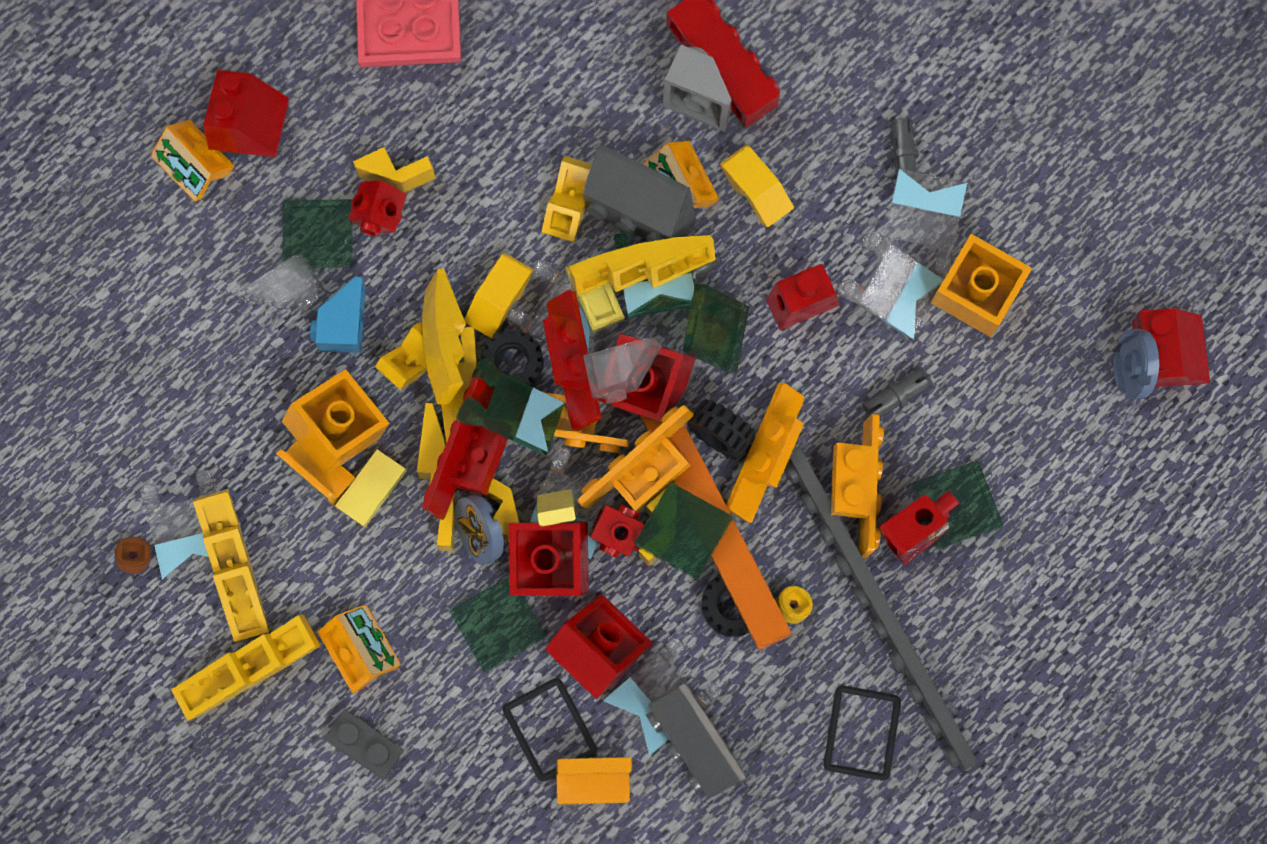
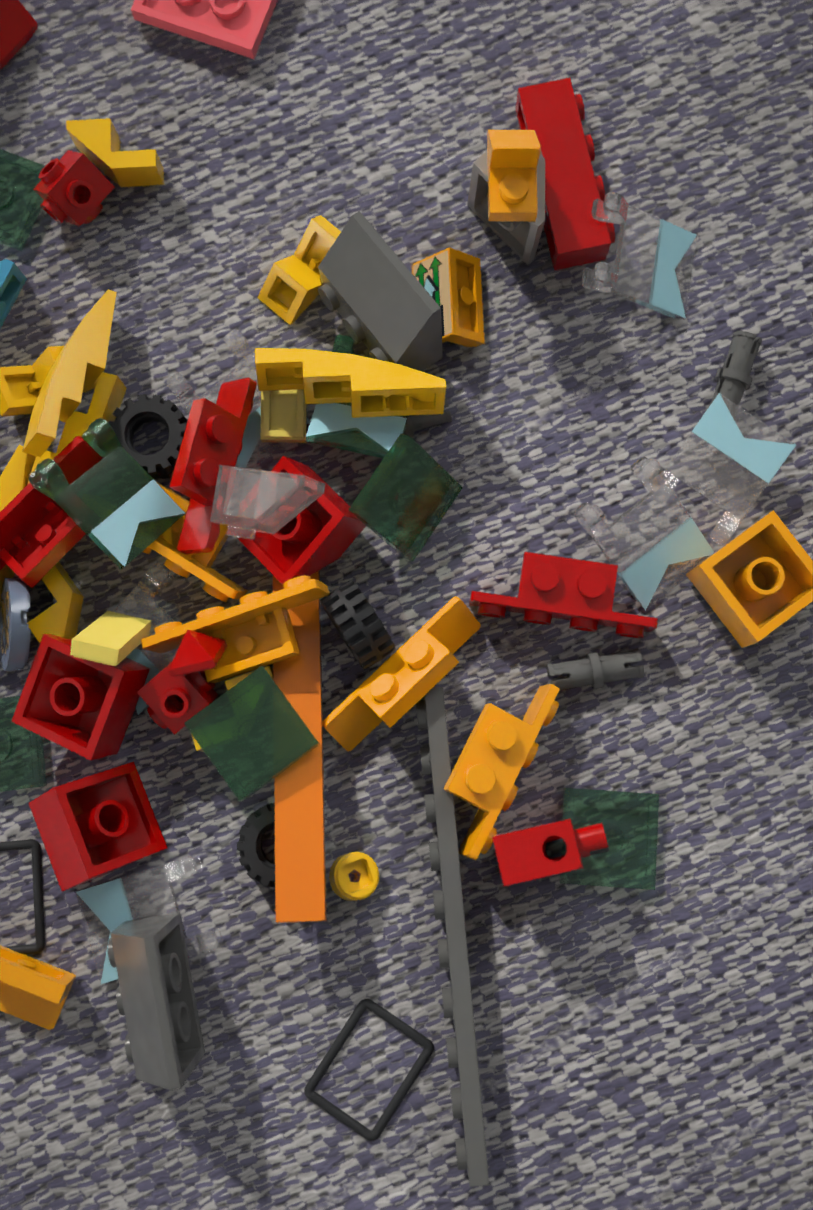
camera: 30 degrees right, 5 degrees up
(497, 294) = (171, 346): yellow slope -> none
(622, 491) = (197, 653): none -> red slope
(696, 77) = (512, 175): none -> light orange slope
(758, 184) = (537, 344): yellow slope -> none
(803, 297) = (531, 502): red torso -> none
(811, 94) = (650, 260): none -> clear flag
(853, 348) = (566, 591): none -> red bracket

